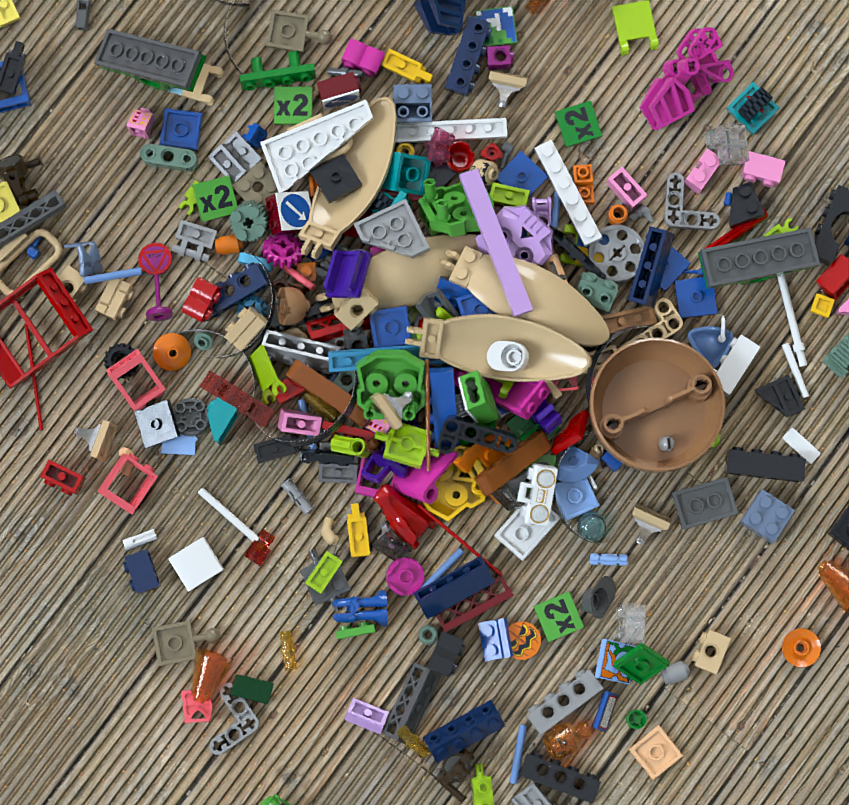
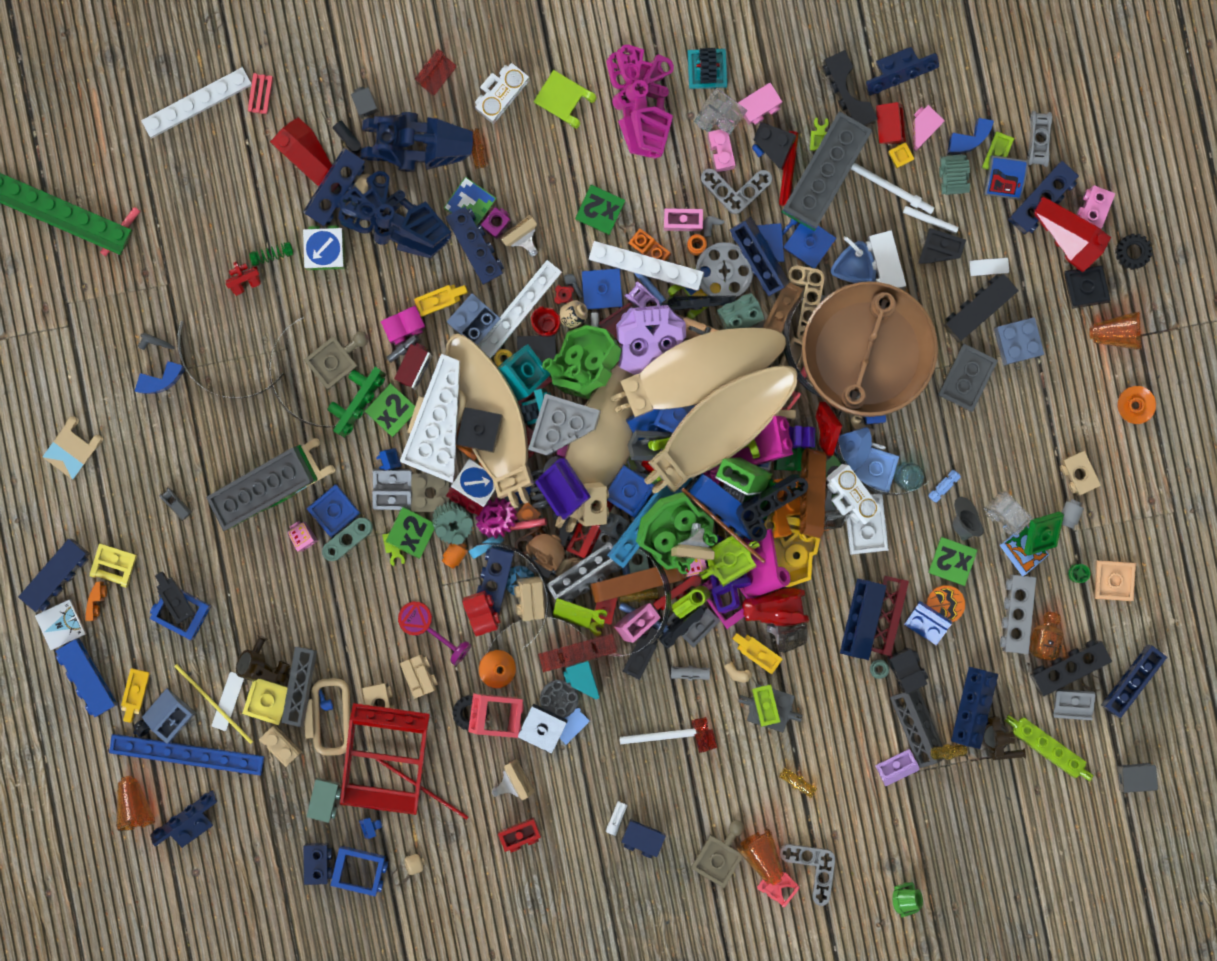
camera: 45 degrees left, 5 degrees up
(89, 262) = (373, 671): sand blue piece -> none
(112, 275) = (401, 662): medium blue bar -> none
(126, 469) = (549, 773): light nougat arm -> none
(141, 492) = (583, 787): coral window -> none
(196, 235) = (426, 571): light grey plate -> none
(196, 564) = (673, 793): white slope -> none
(206, 337) = (512, 635): sand green plate -> none
(251, 689) = (802, 835): dark green slope -> none
(347, 631) = (833, 713): bright green plate -> none
(353, 603) = (808, 702): blue piece -> none
(373, 445) = (706, 584): reddish brown arm -> none
(405, 576) = (821, 647): dark pink tile -> none
(437, 146) = (523, 331): clear pink hips -> none
(444, 568) = (840, 613): medium blue bar -> none
(458, 538) = (830, 583): red axle -> none
(495, 243) = (640, 357): lavender tile -> none
(507, 356) = (733, 426): white cap -> none
(508, 195) = (609, 312): lime plate -> none
(518, 754) = (1025, 682): medium blue bar -> none
(605, 711) = (1051, 590): slope -> none
(649, 522) = (944, 431): tan piece -> none
(663, 443) = (901, 370): light grey hinge -> none

